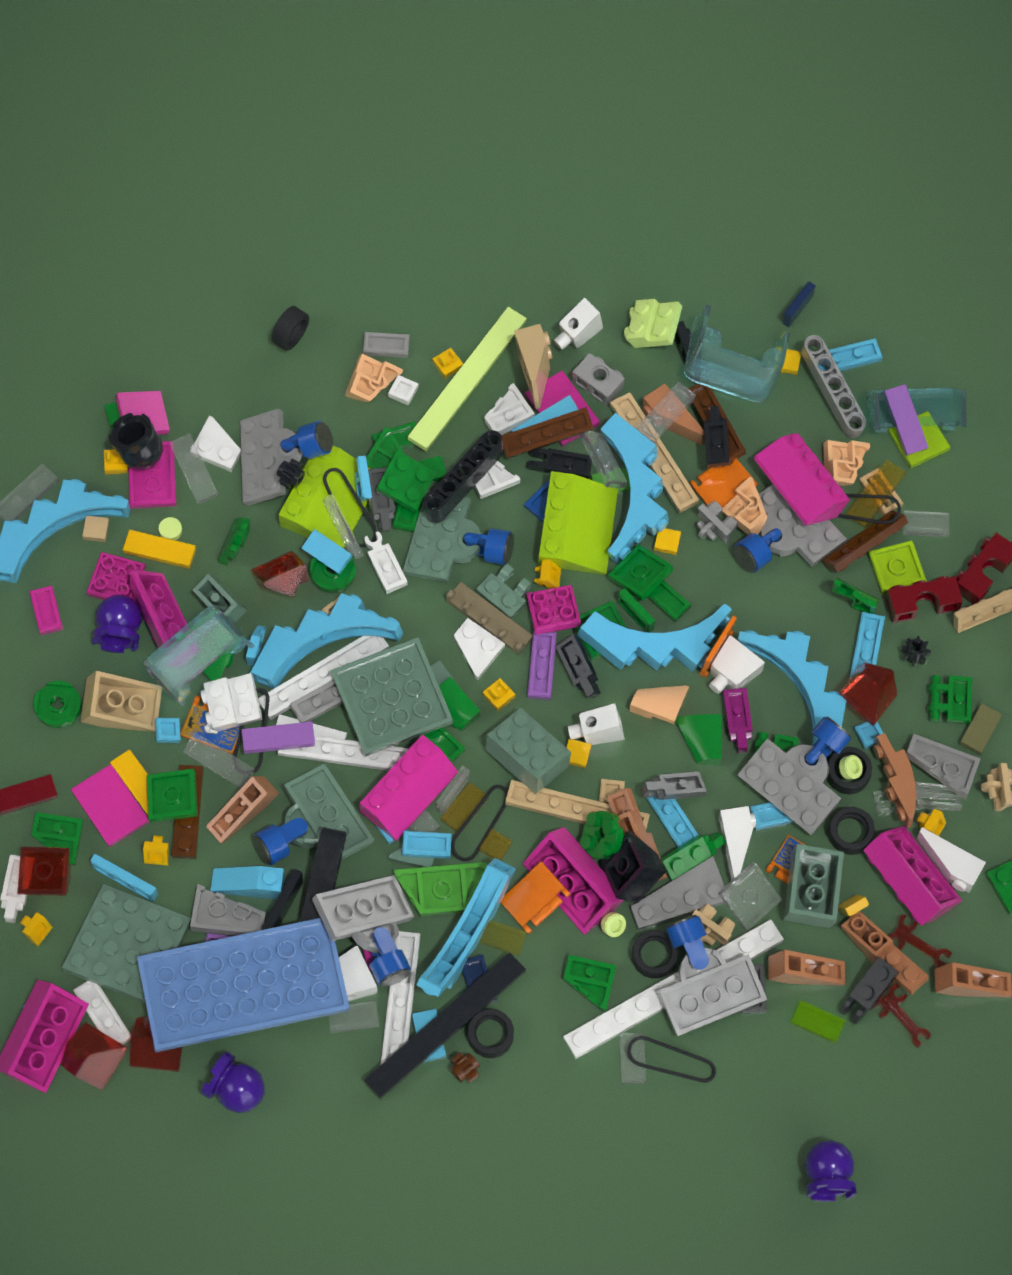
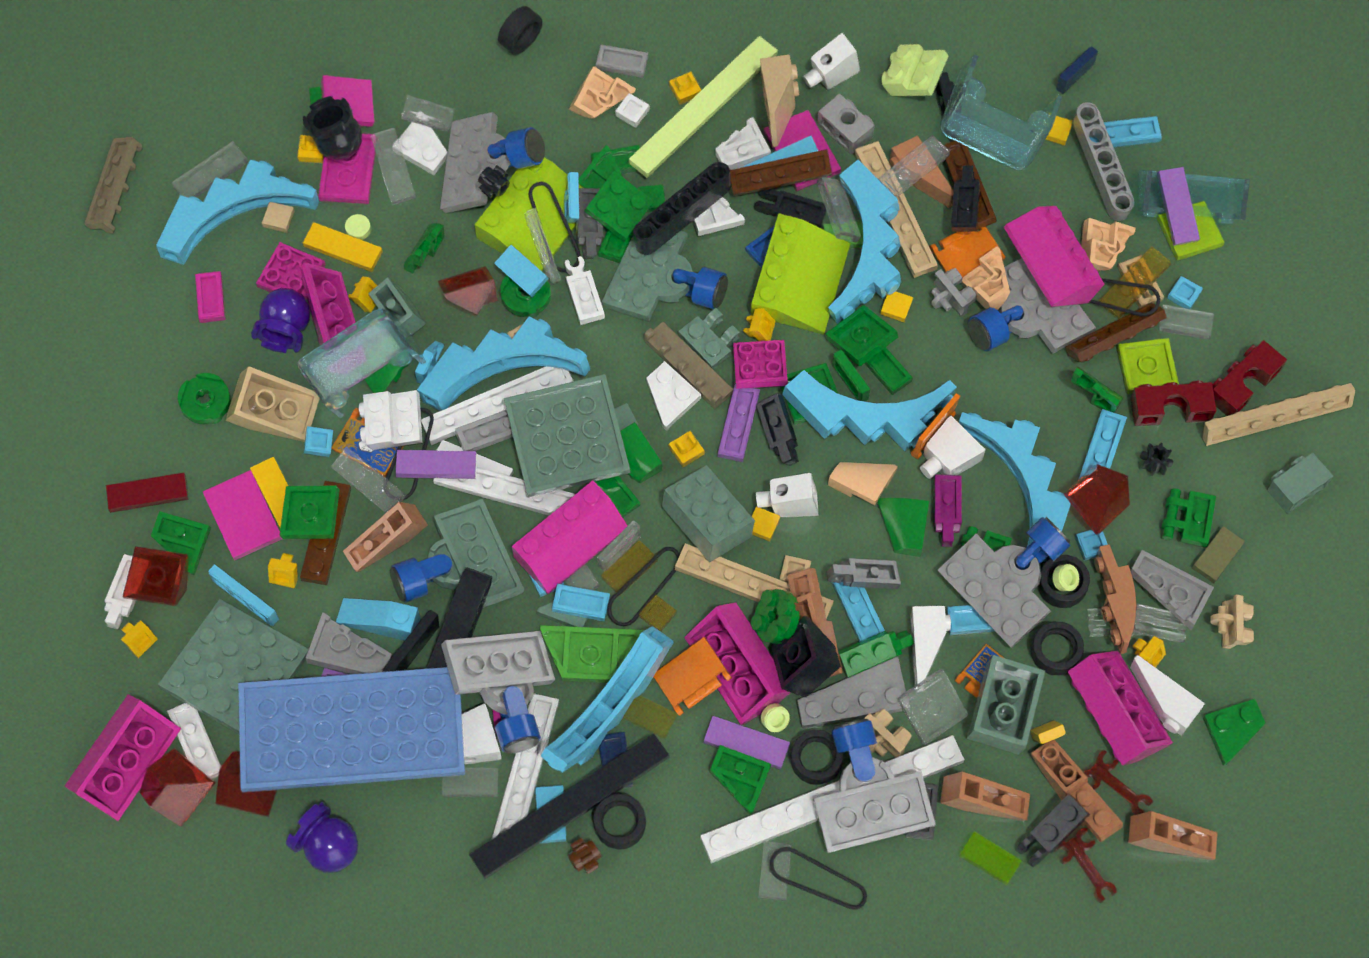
camera: 10 degrees right, 0 degrees up
(185, 590) = (360, 294): none -> yellow tile
(217, 416) = (427, 113): none -> clear tile
(591, 948) = (747, 741): none -> medium lavender tile
(921, 497) = (1184, 293): none -> medium azure tile

